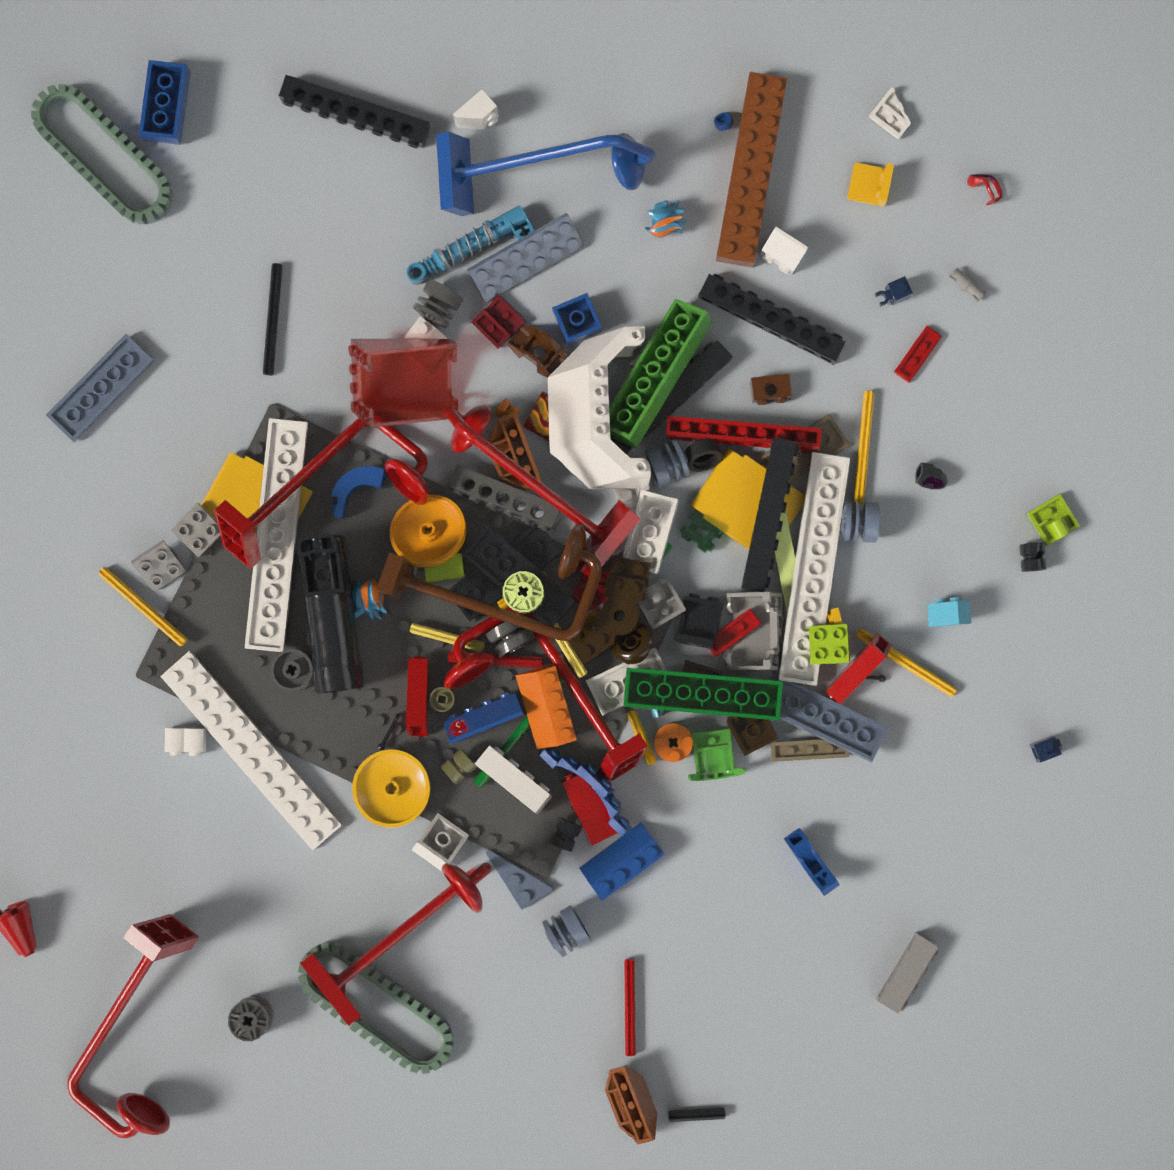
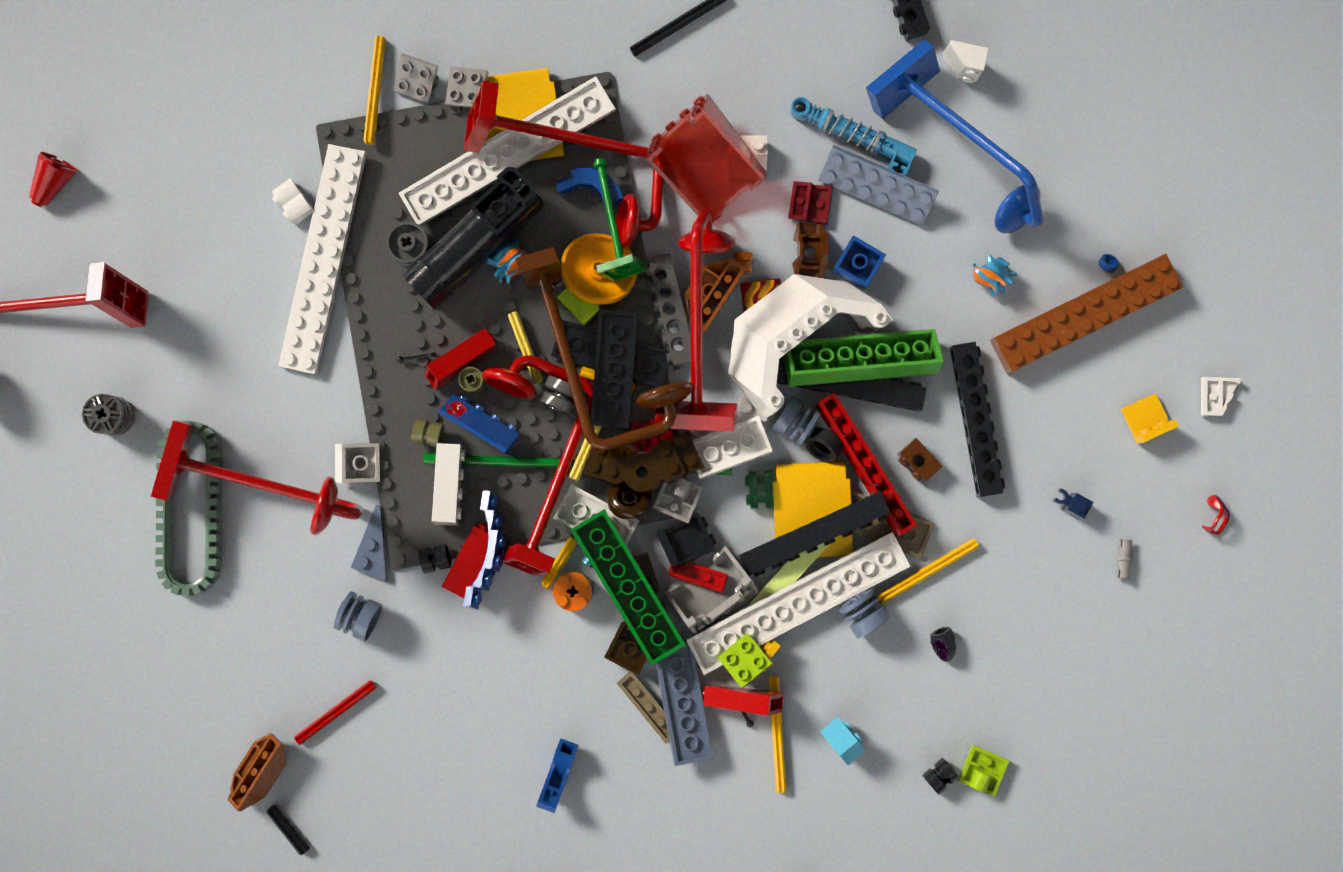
camera: 55 degrees right, 0 degrees up
(391, 788) = (370, 391): yellow dish -> none
(437, 304) = (788, 142): dark grey wheel -> none
(441, 511) = (623, 265): none -> green tile
(509, 660) = (543, 412): red axle -> none
(534, 595) = (609, 390): yellowish green wheel -> none
(546, 707) = (525, 467): orange slope -> none
(621, 861) = (447, 620): blue slope -> none
(713, 756) = (586, 632): bright green piece -> none
(783, 251) = (1039, 388): white slope -> none
(917, 354) = (1036, 559): red tile -> none

